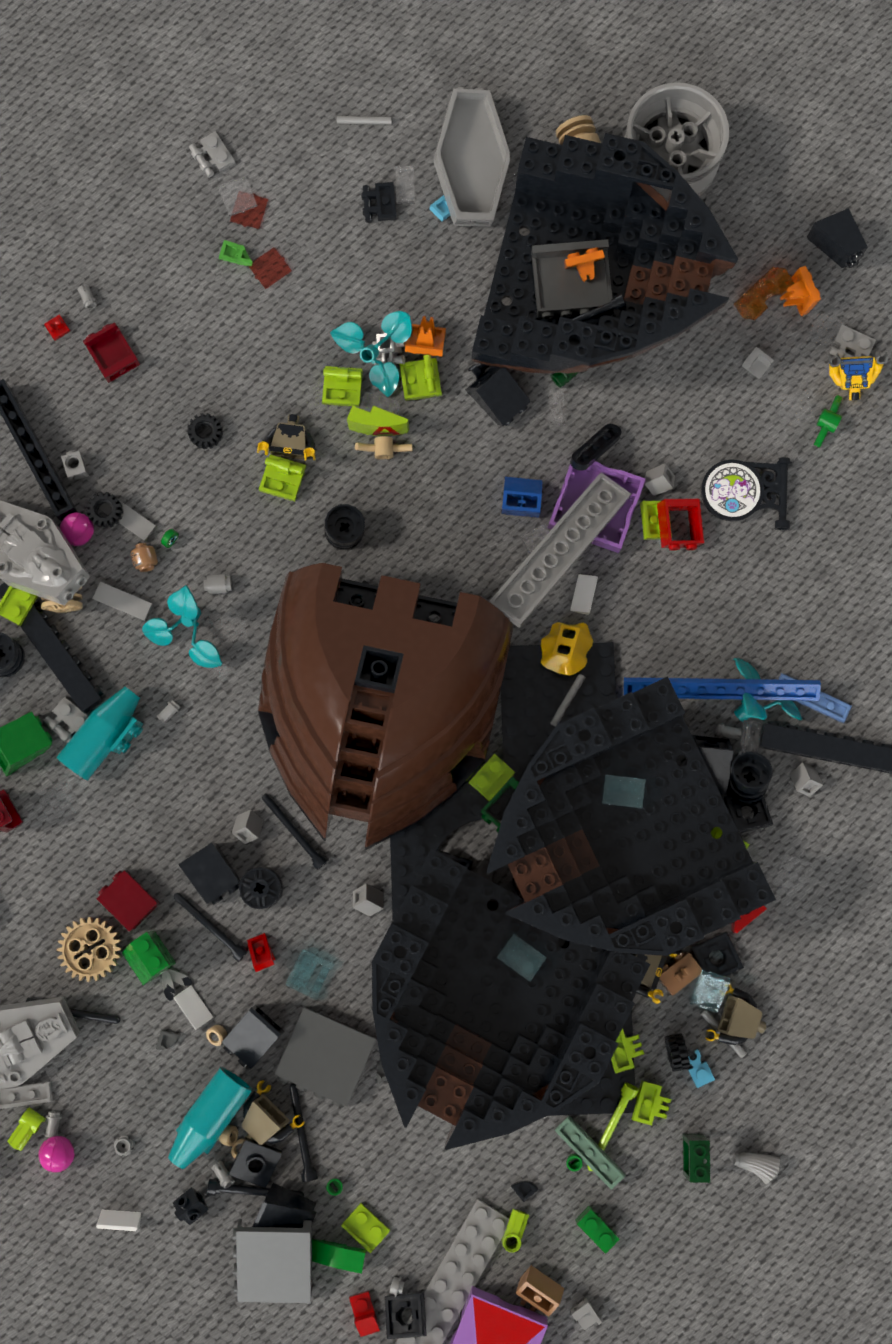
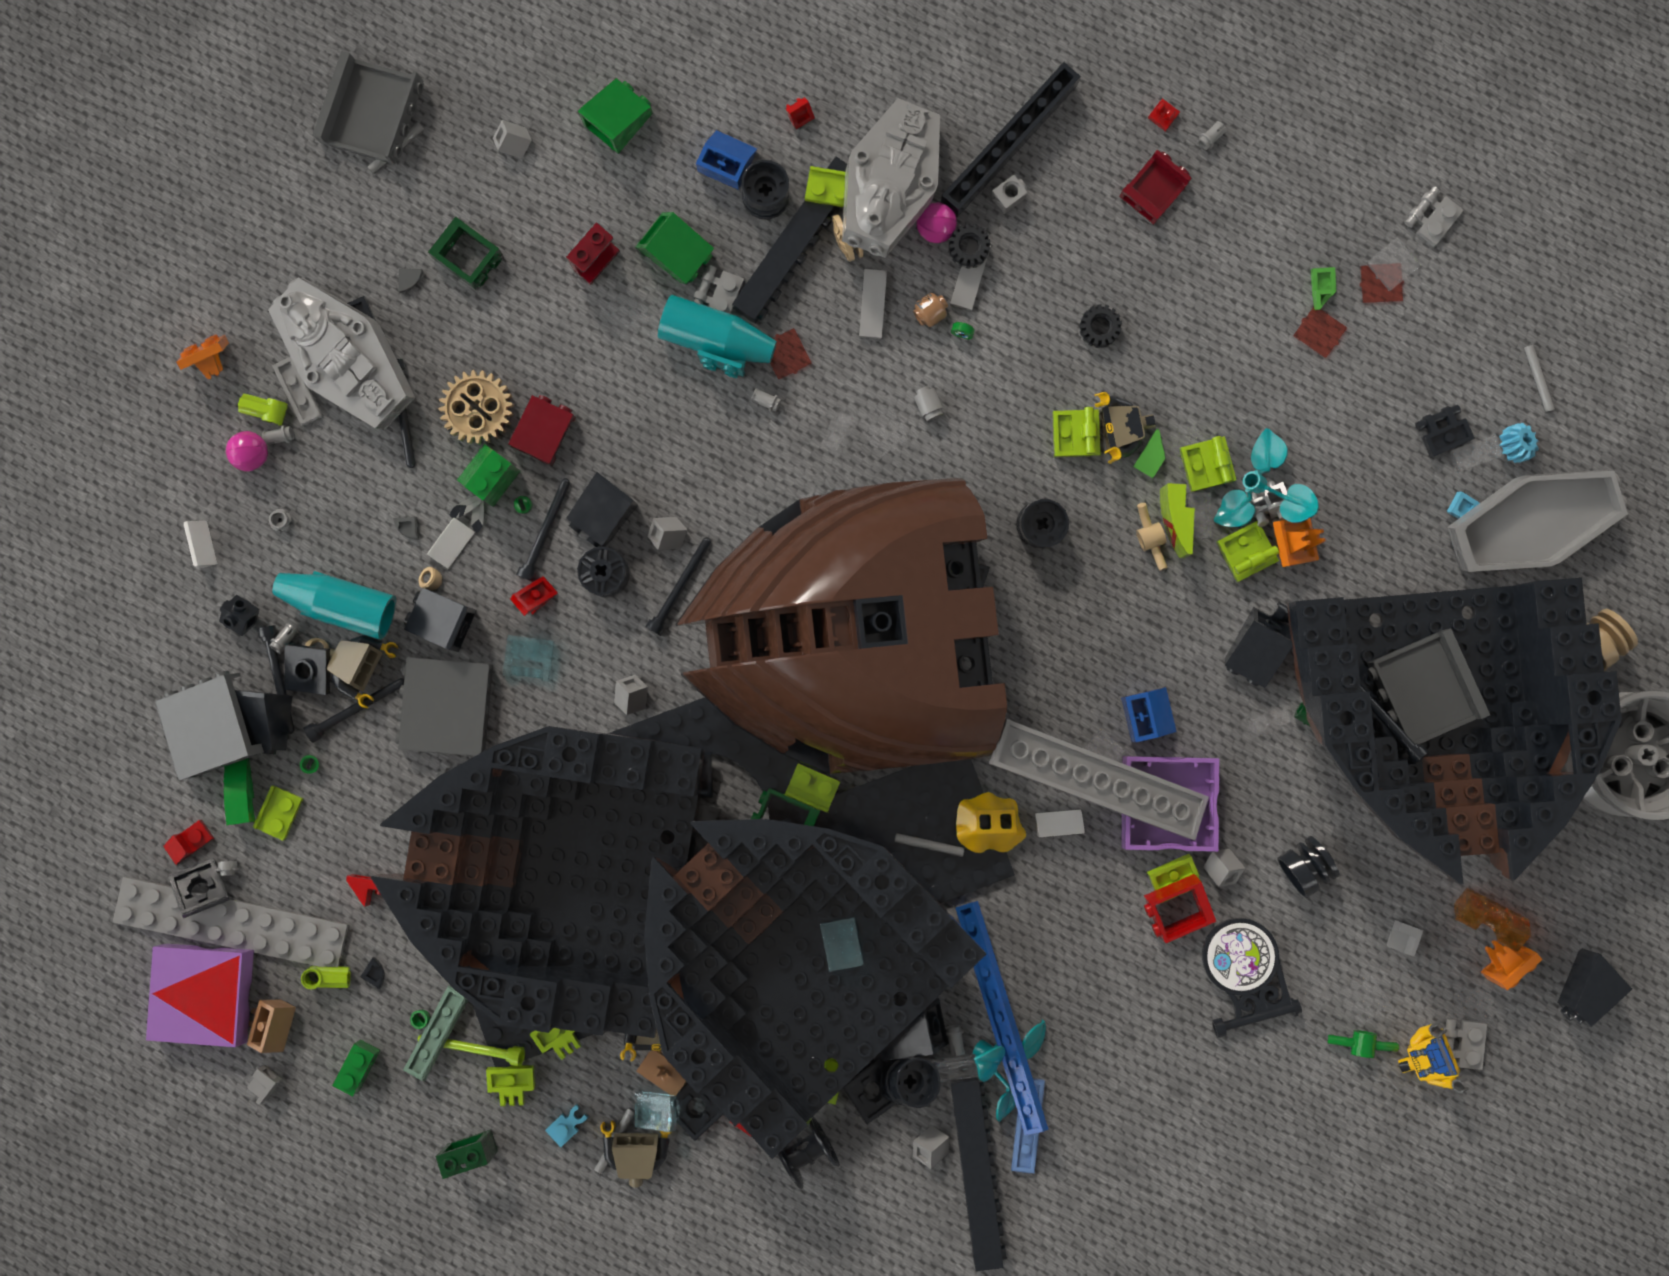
camera: 75 degrees right, 5 degrees up
(139, 681) = (789, 354): none -> clear red piece
(183, 933) = (527, 503): none -> green hinge
(184, 604) = (888, 374): teal plant -> none
(225, 1137) = (322, 629): tan piece -> none
(321, 426) = (1151, 456): none -> bright green slope
(408, 151) = (1518, 443): none -> medium azure gear
(449, 1173) = (362, 887): none -> red slope
(521, 957) = (618, 889): clear light blue plate -> none
(585, 262) = (1451, 698): orange plate -> none
(595, 447) = (1235, 781): black plate -> none
(677, 1052) = (575, 1096): black tyre -> none
(679, 415) = (1311, 864): none -> black wheel
(762, 1165) = (484, 1228): light grey piece -> none
(778, 869) = (818, 1145): none -> black piece

